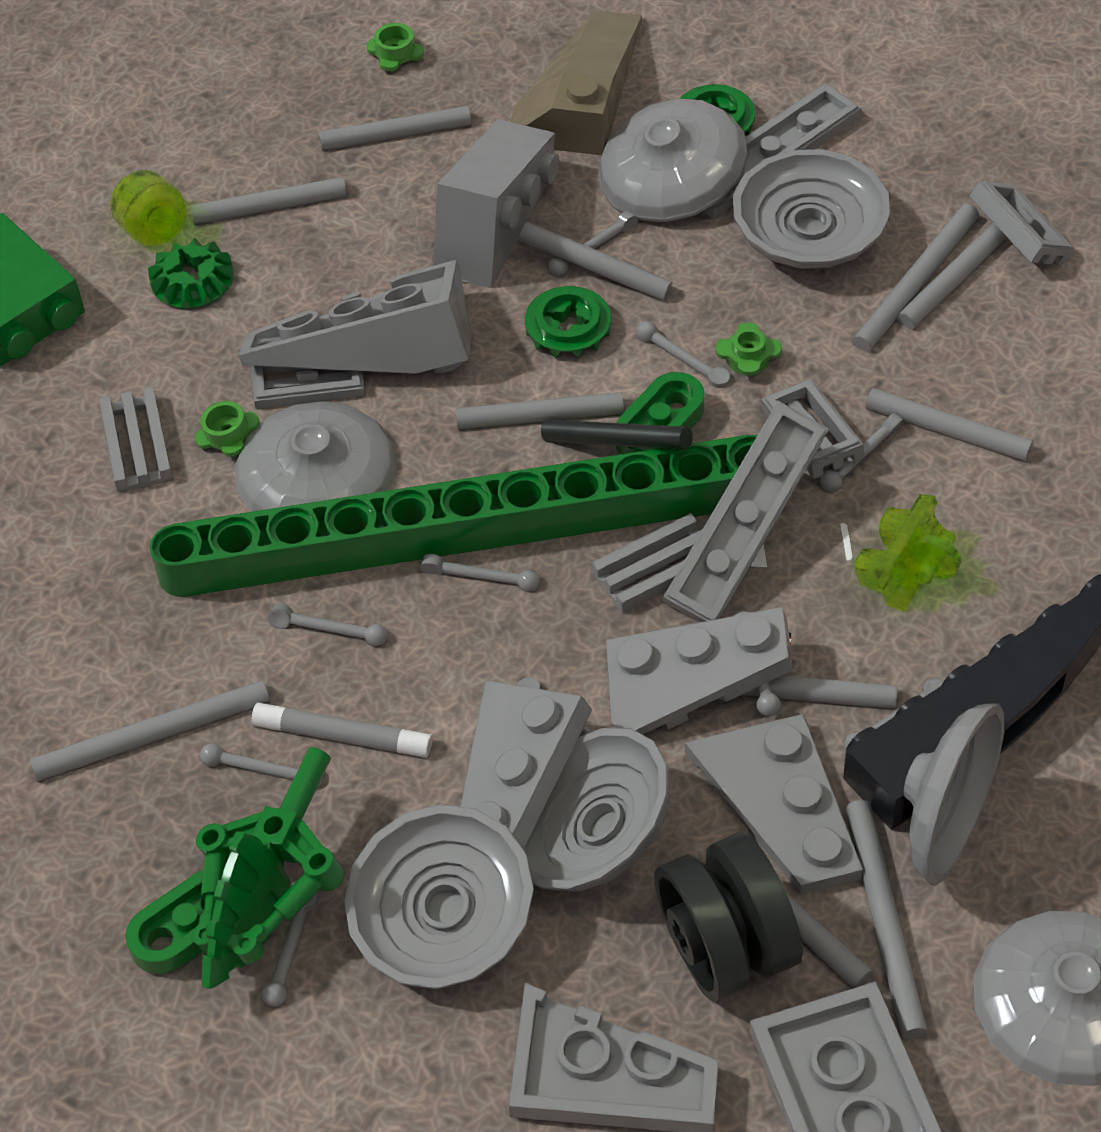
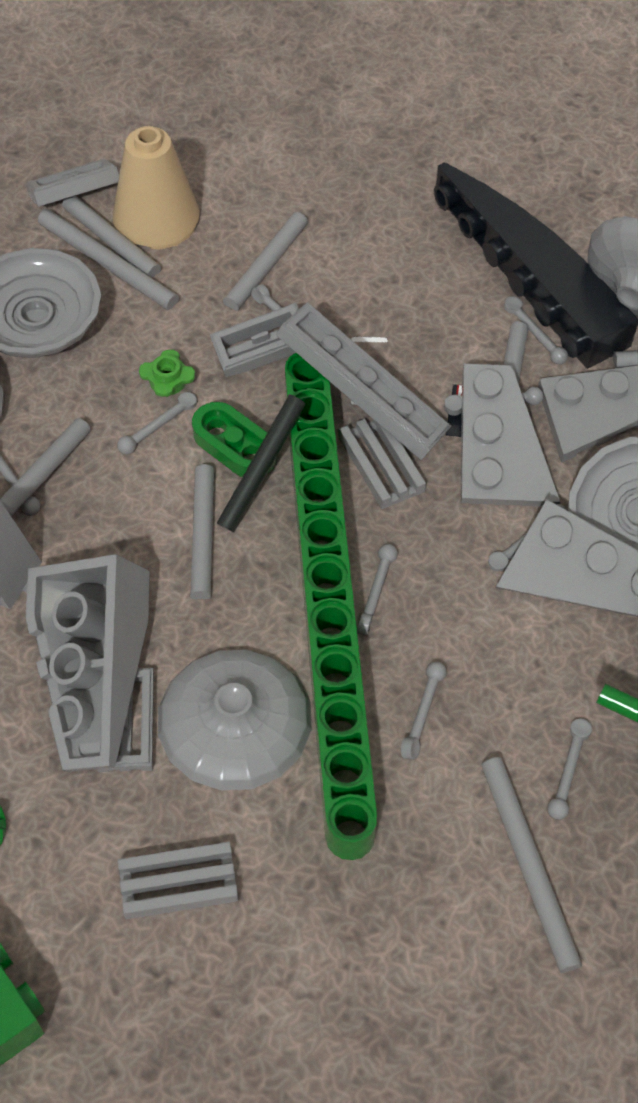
camera: 90 degrees left, 5 degrees up
(225, 416) = (180, 775): bright green plate -> none
(342, 730) = (535, 703): light grey bar -> none
(555, 307) = (97, 482): green gear -> none
(914, 553) = (401, 285): clear neon green hips -> none
(1004, 287) = (153, 193): none -> tan cone

